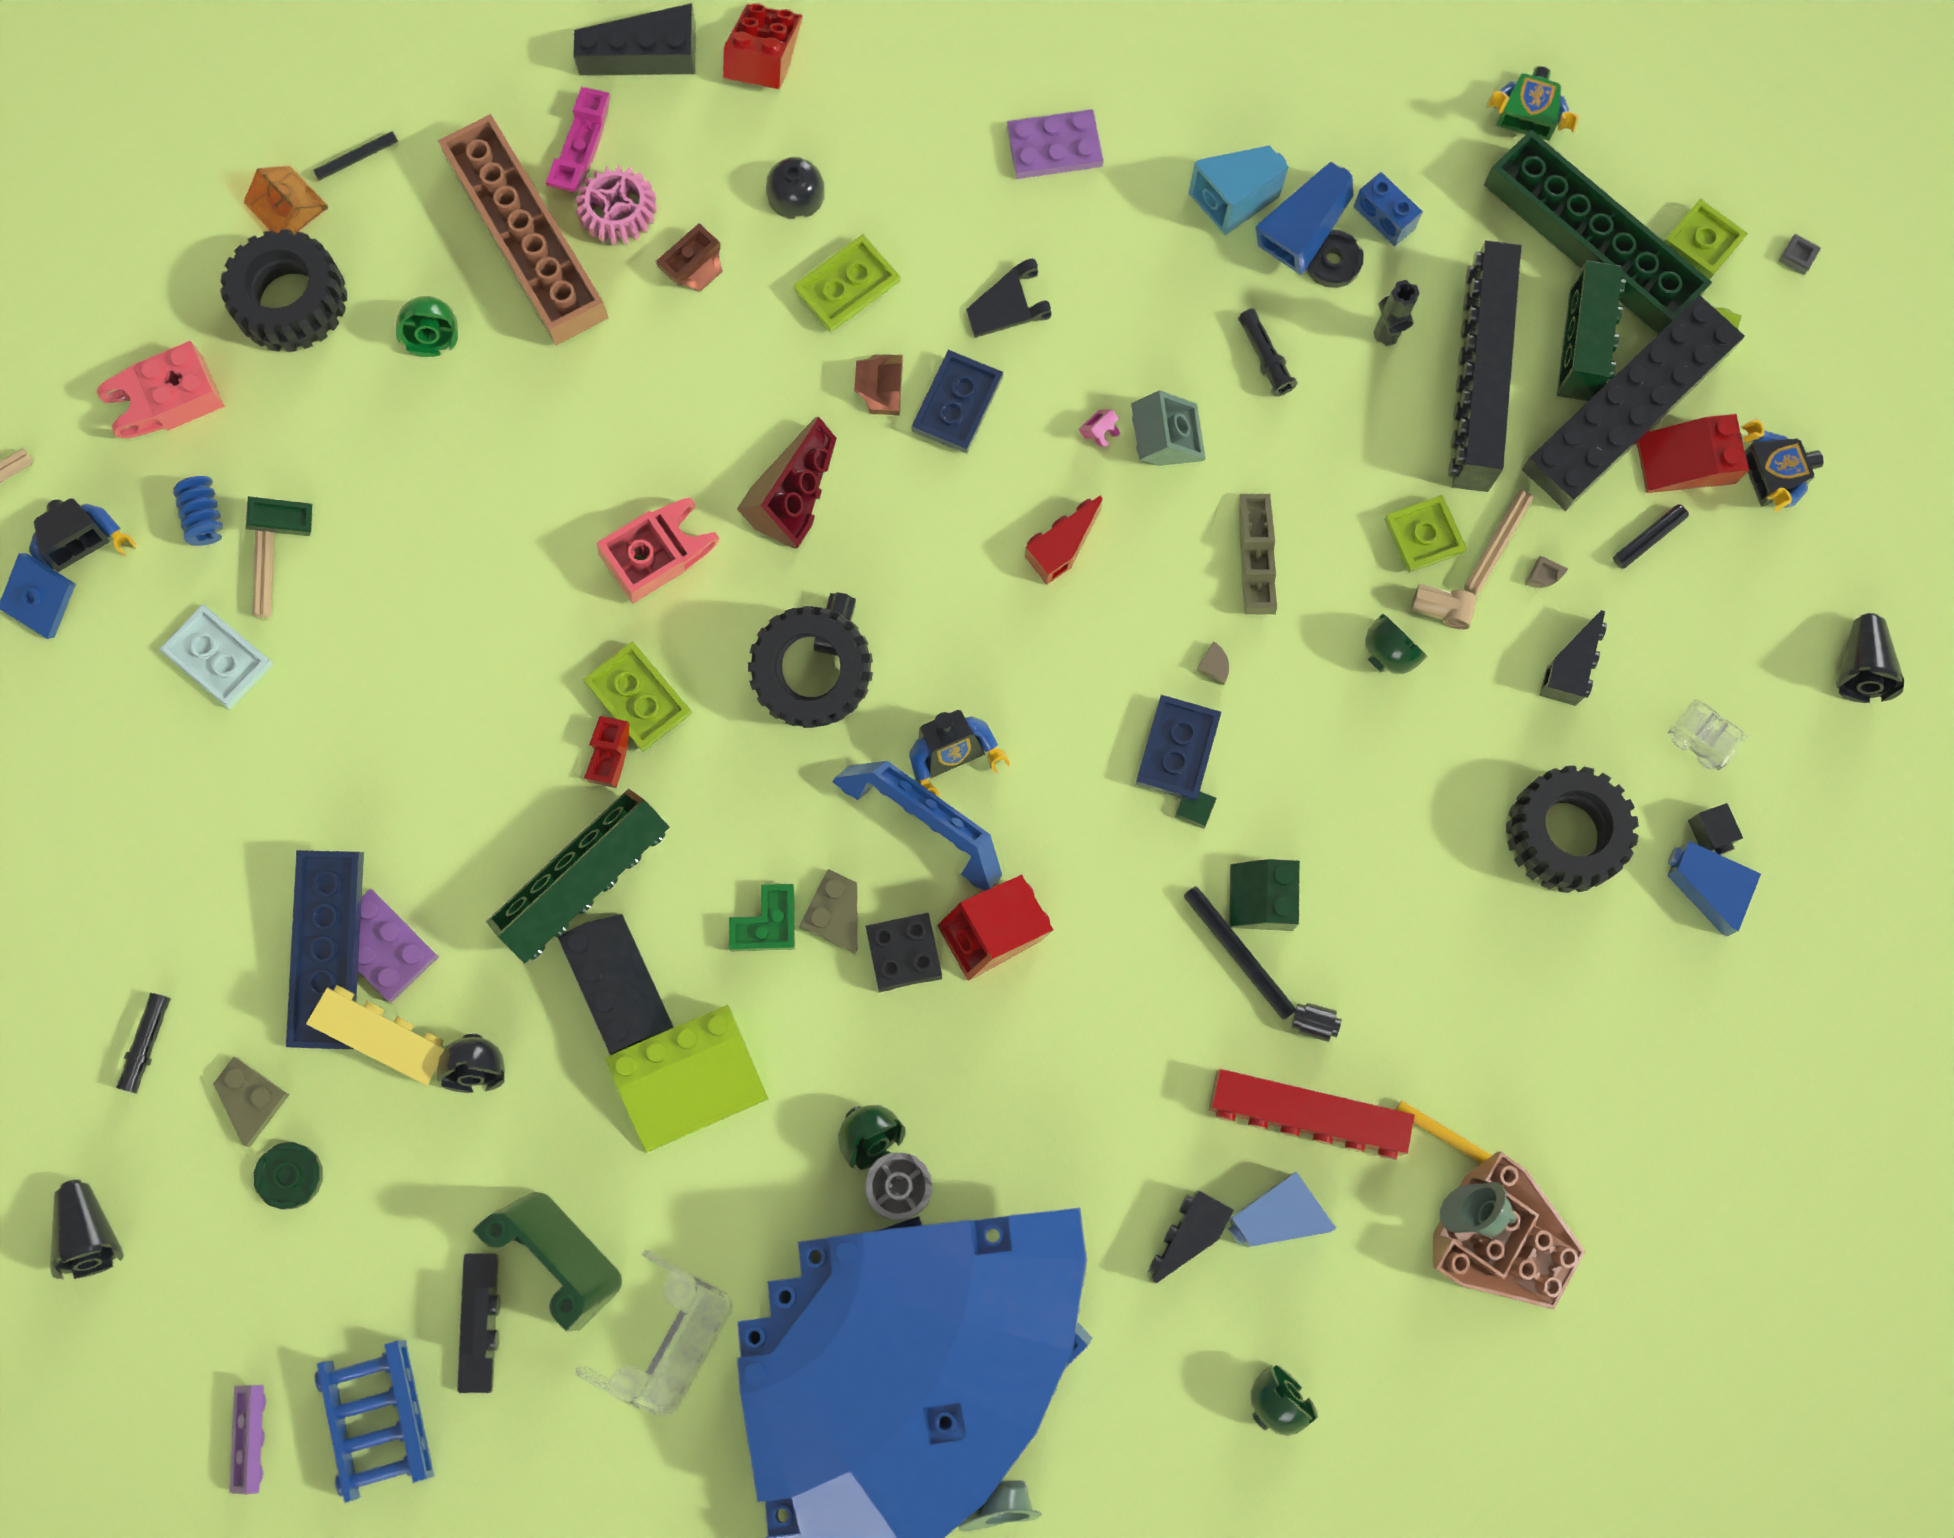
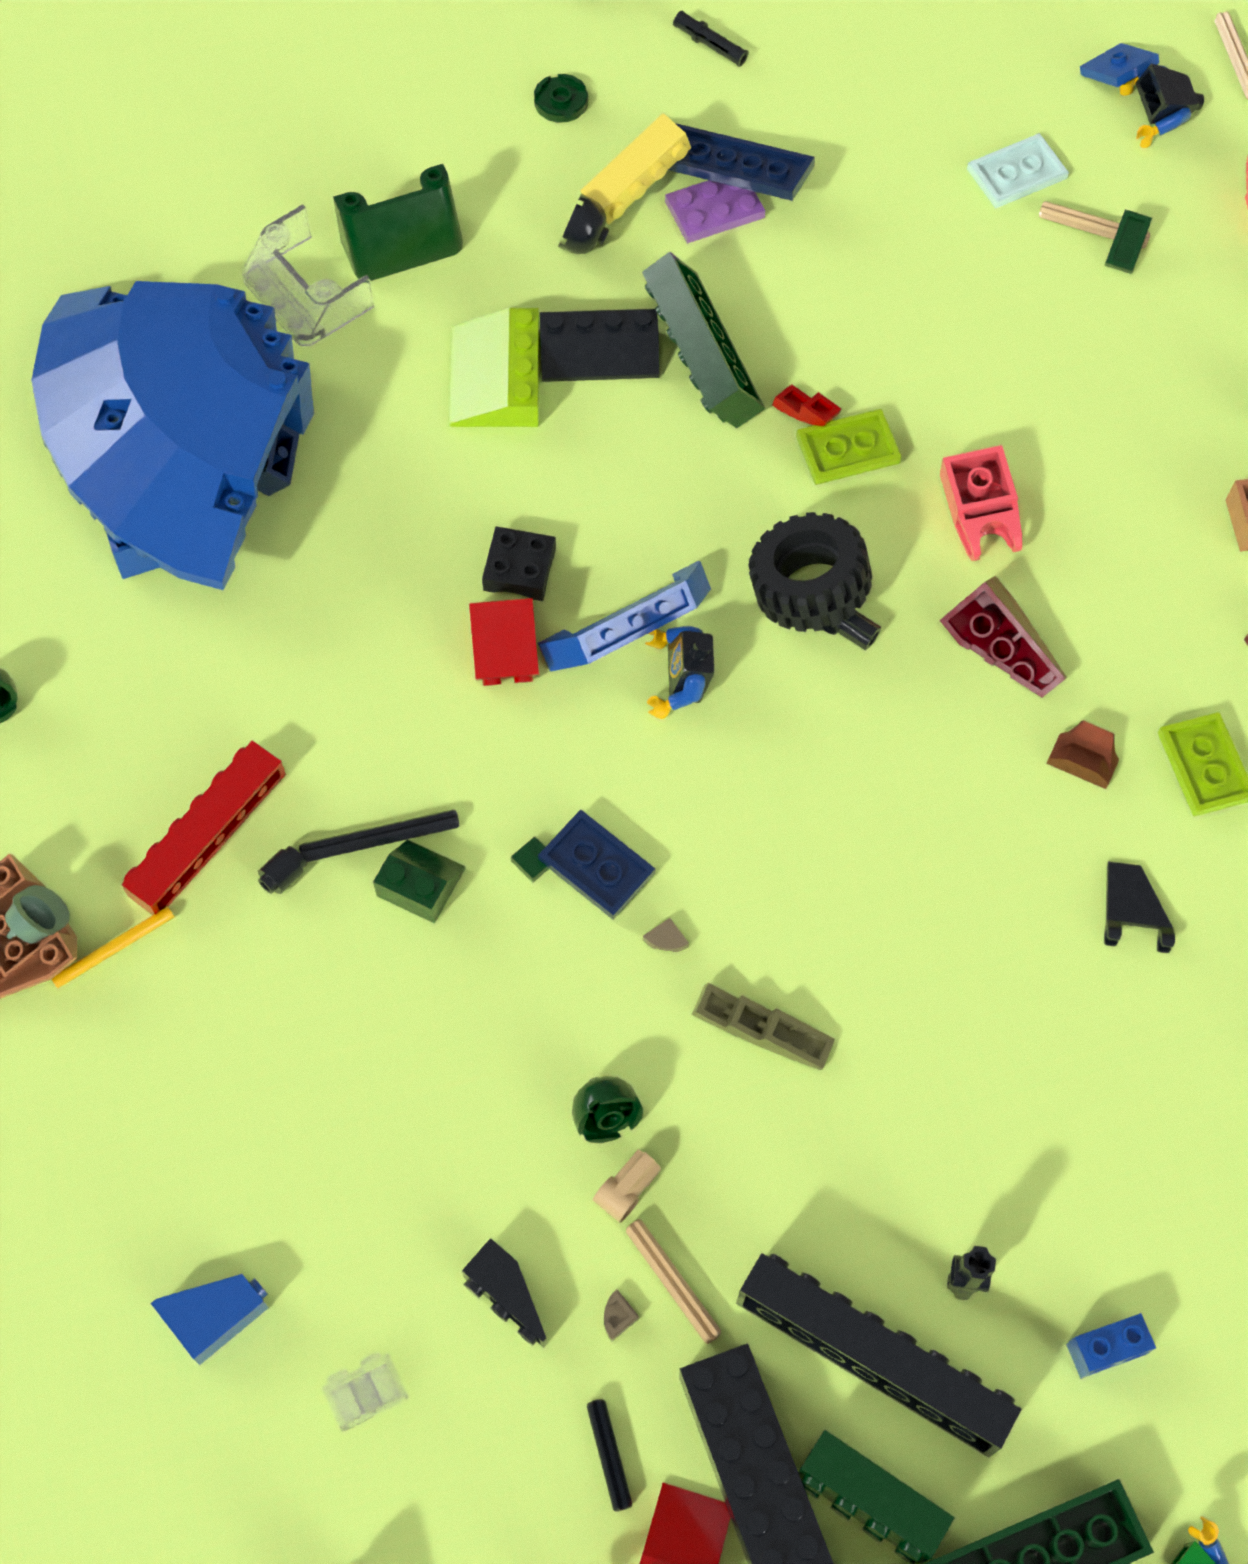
camera: 115 degrees right, 10 degrees down
(198, 511) = (1156, 187): blue piece -> none
(247, 1439) = (379, 19): plate -> none
(248, 1099) = (634, 90): olive wing -> none
(409, 1428) = (346, 114): blue fence -> none
(478, 1323) = (373, 172): black bracket -> none
(772, 930) = (591, 475): green plate -> none
(834, 912) = (583, 527): olive wing -> none
(868, 1135) = (377, 474): dark green cylinder -> none
(898, 1186) = (321, 475): light grey cylinder -> none
(957, 401) = (1039, 814): dark blue plate -> none
(1006, 1504) = (35, 462): sand green piece -> none
(1058, 548) = (845, 844): red slope -> none
(1097, 426) = (962, 931): tile -> none
(1167, 429) = (931, 997): sand green slope -> none
(1197, 1230) = (158, 691): black slope -> none
(1237, 185) = (1189, 1185): dark azure slope -> none
(1271, 362) = (964, 1135): black pin -> none
(1280, 1215) = (131, 765): medium blue slope -> none
(1306, 218) = (1129, 1249): blue slope -> none
(1337, 274) = (1061, 1281): black tile -> none
(1425, 533) = (713, 1205): lime plate -> none
(1603, 805) = (307, 1154): black tyre -> none
(1716, 829) = (263, 1346): black brick -> none

